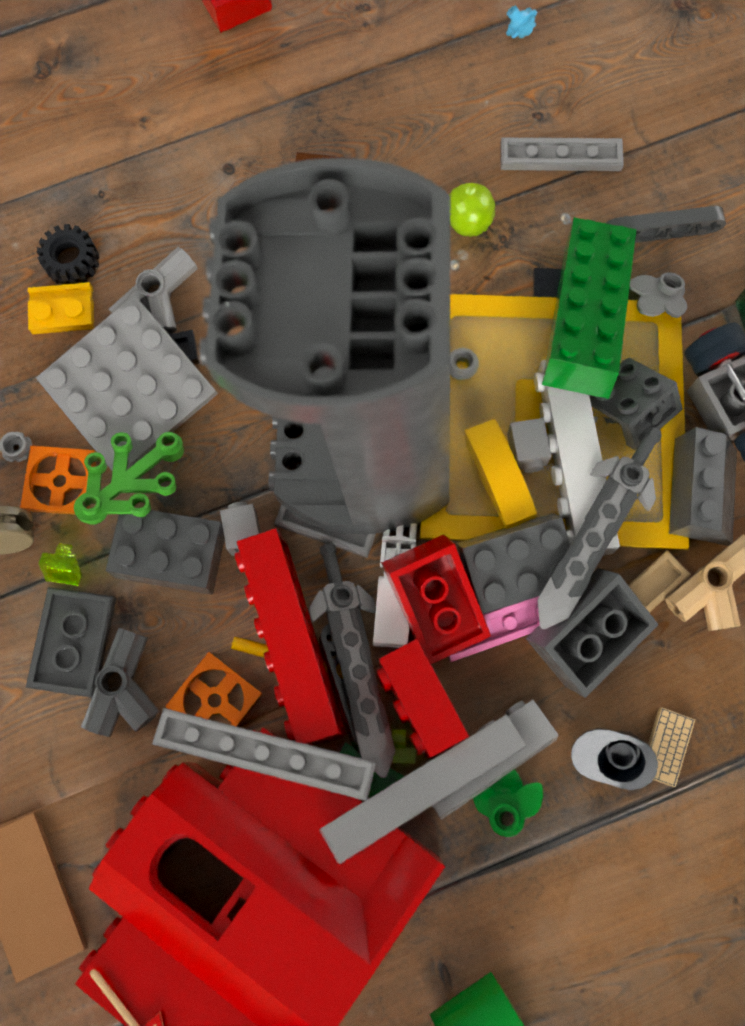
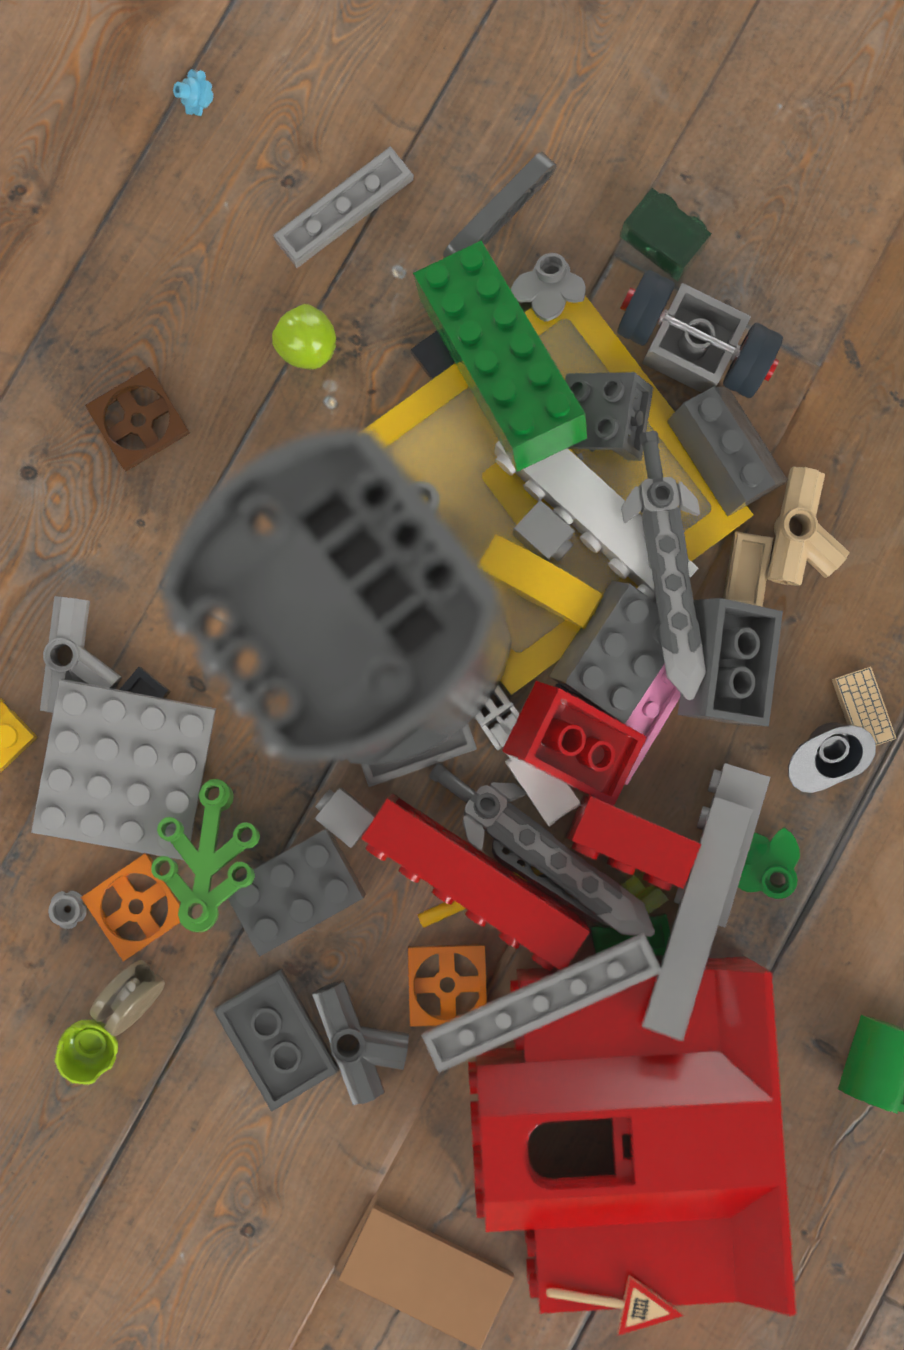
camera: 45 degrees left, 10 degrees up
(61, 566) = (210, 981): clear neon green tile -> none

